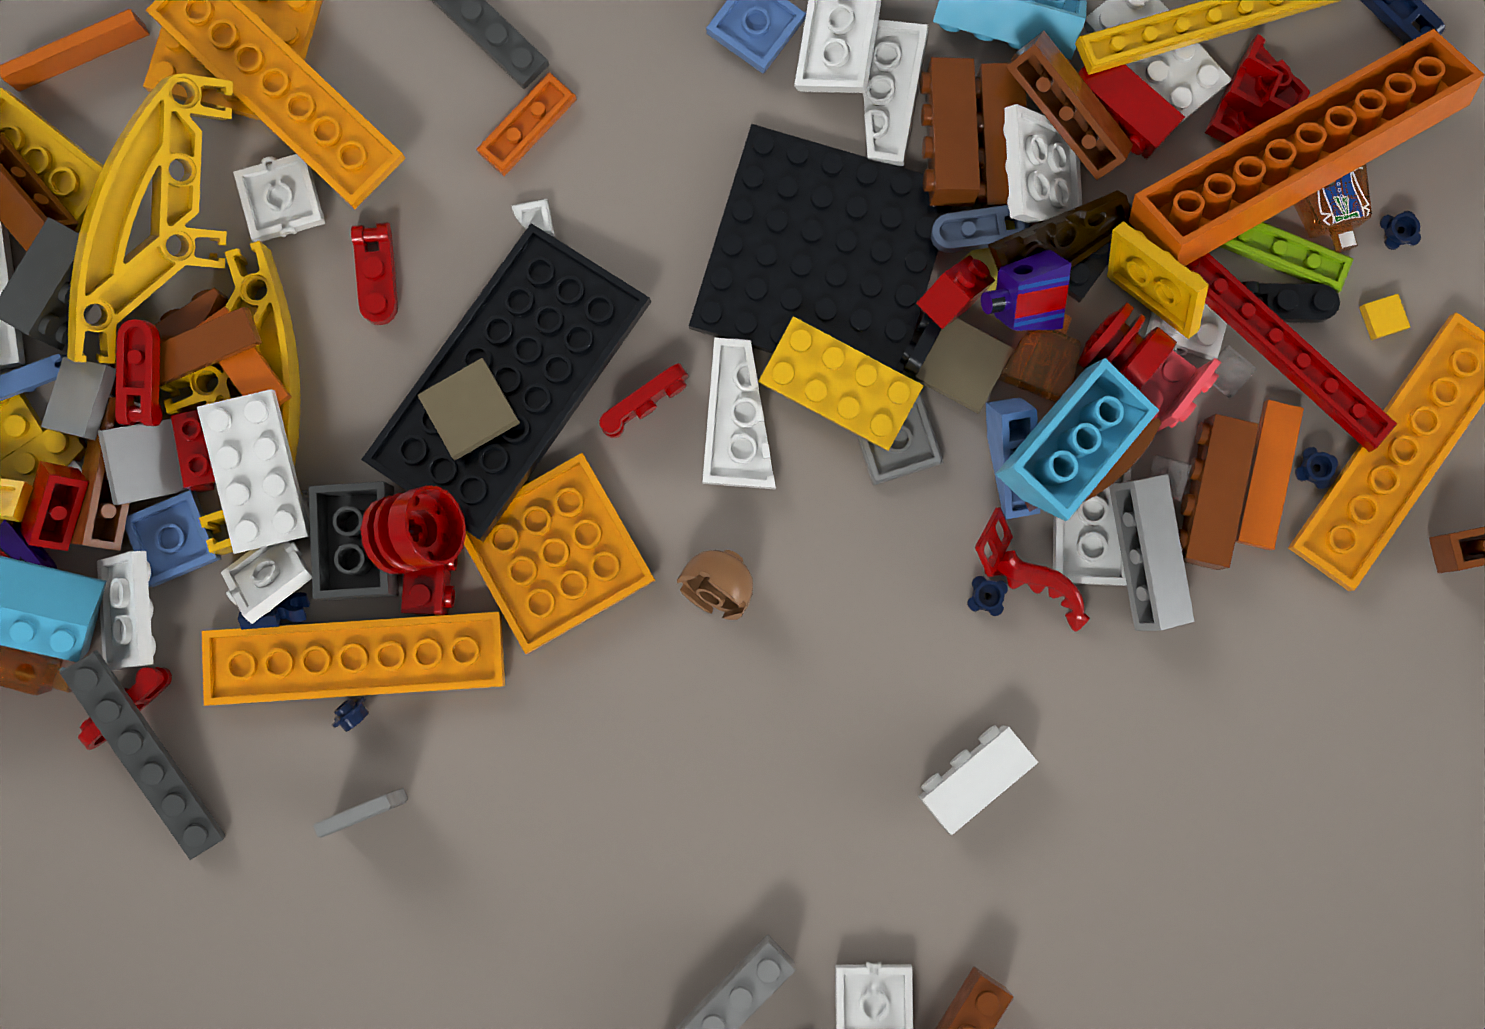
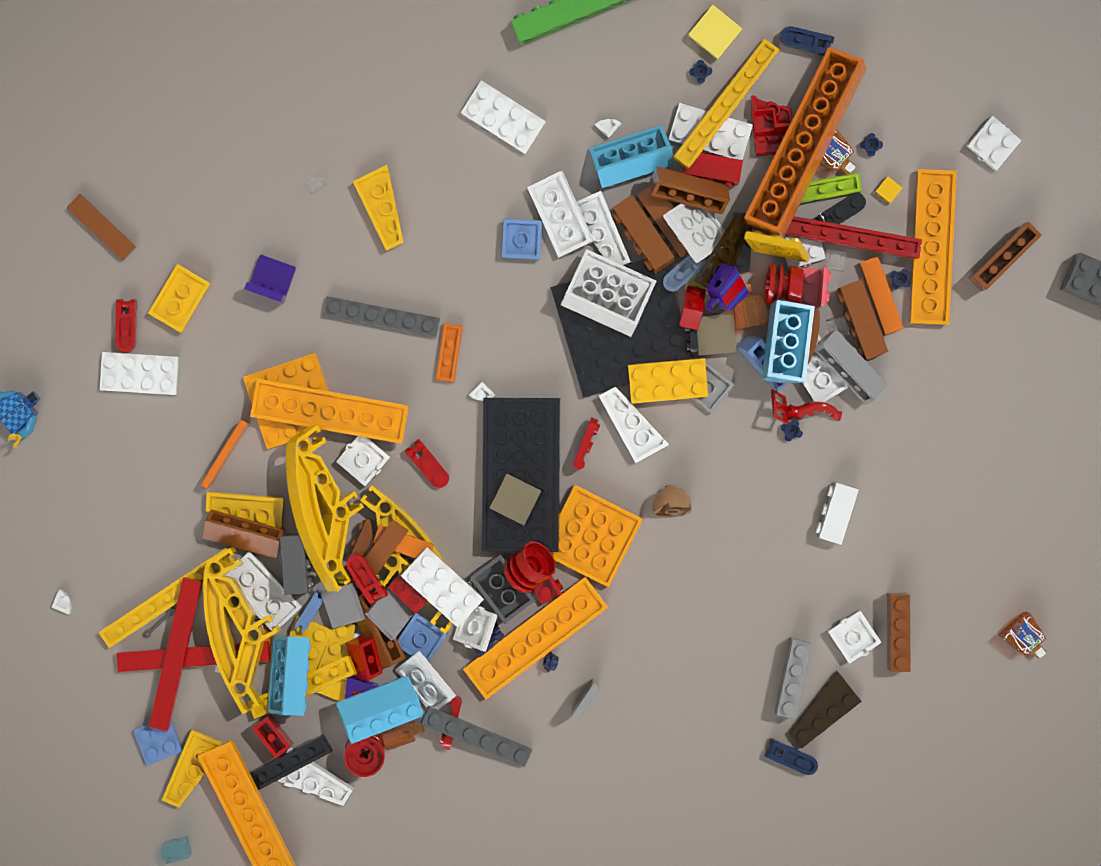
camera: 35 degrees left, 5 degrees up
(835, 183) = (608, 293): none -> white slope

